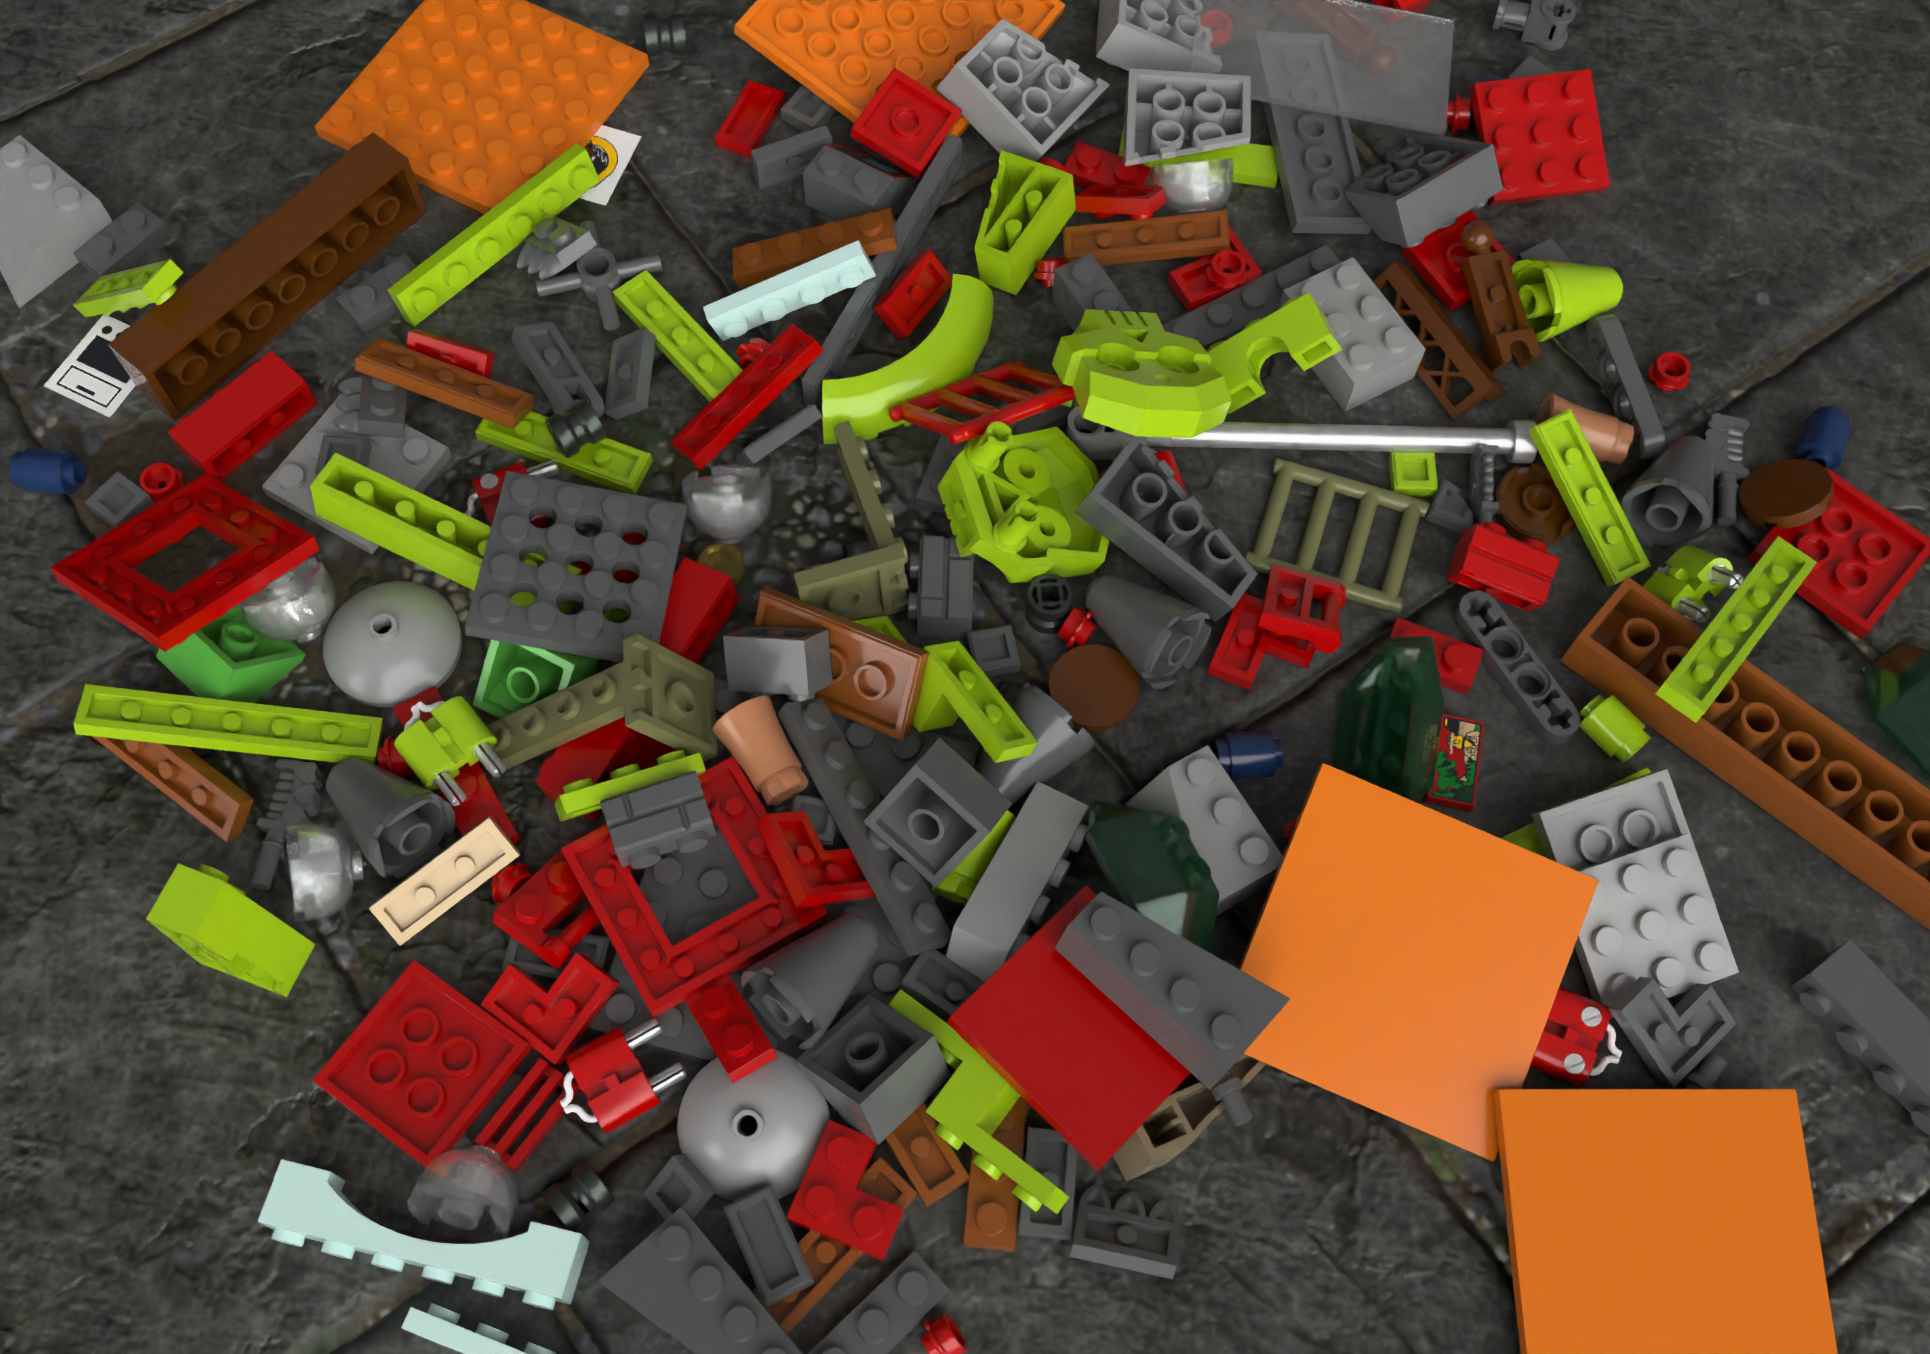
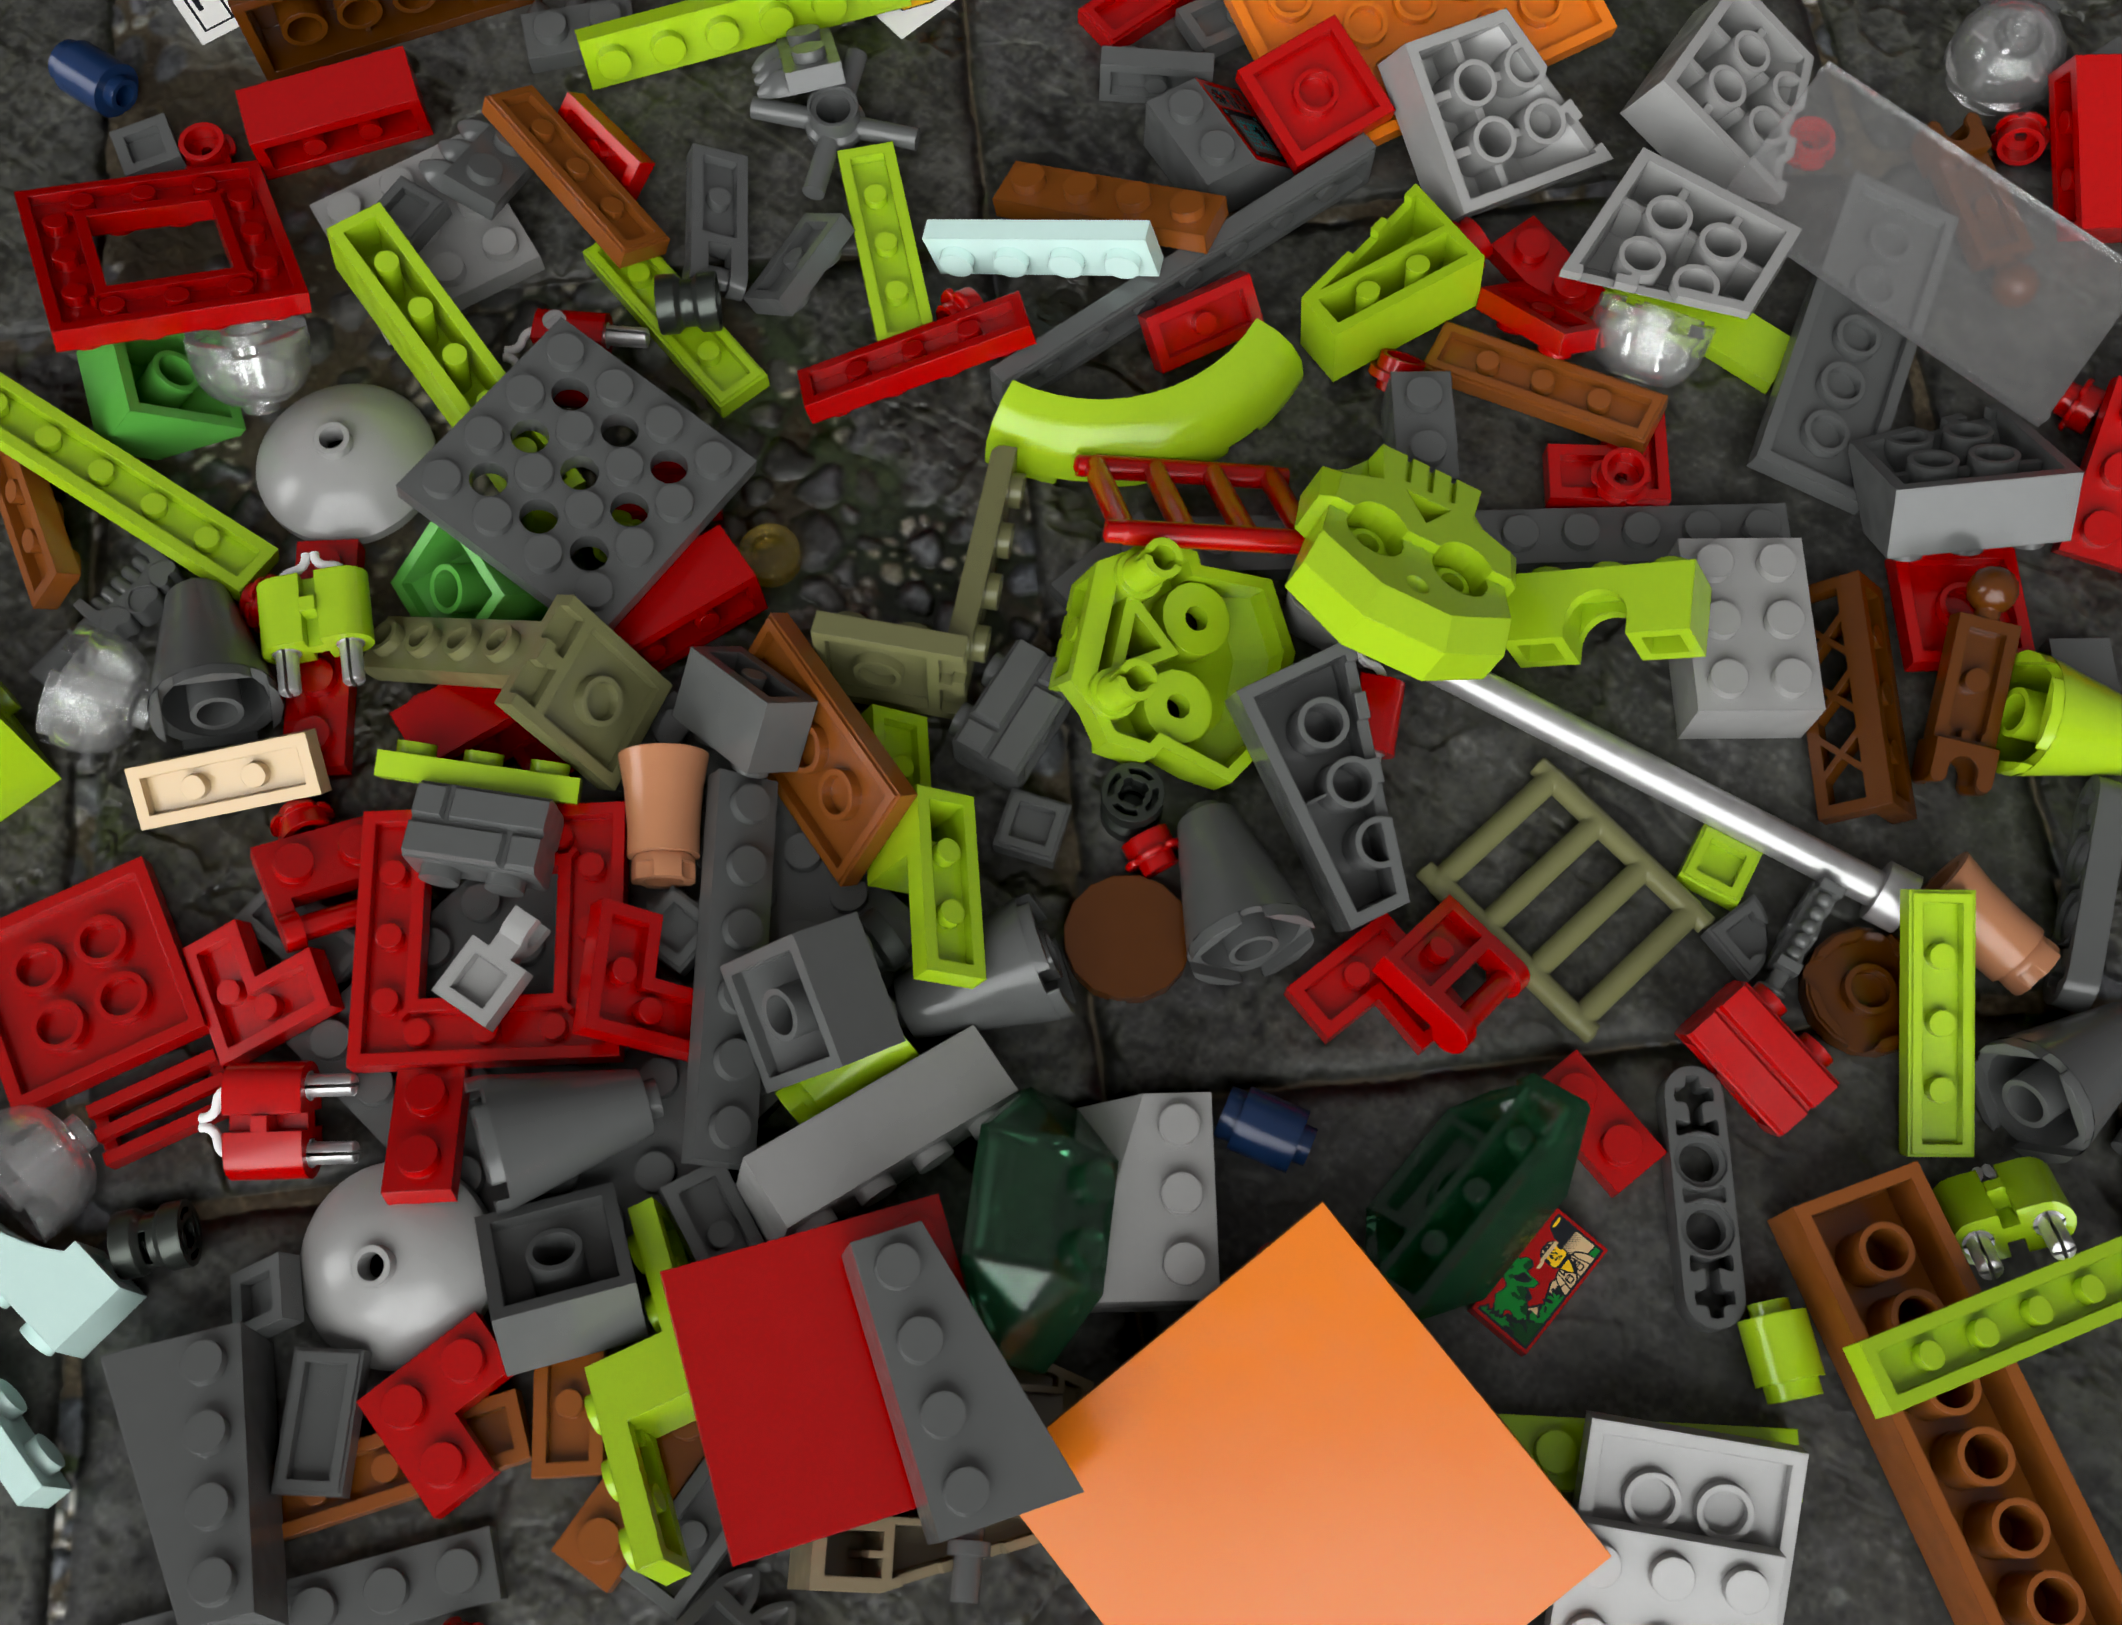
camera: 30 degrees right, 5 degrees up
(716, 905) = (487, 977): none -> light grey plate
(728, 501) = (813, 479): clear cylinder -> none
(779, 436) = (928, 426): dark grey tile -> none

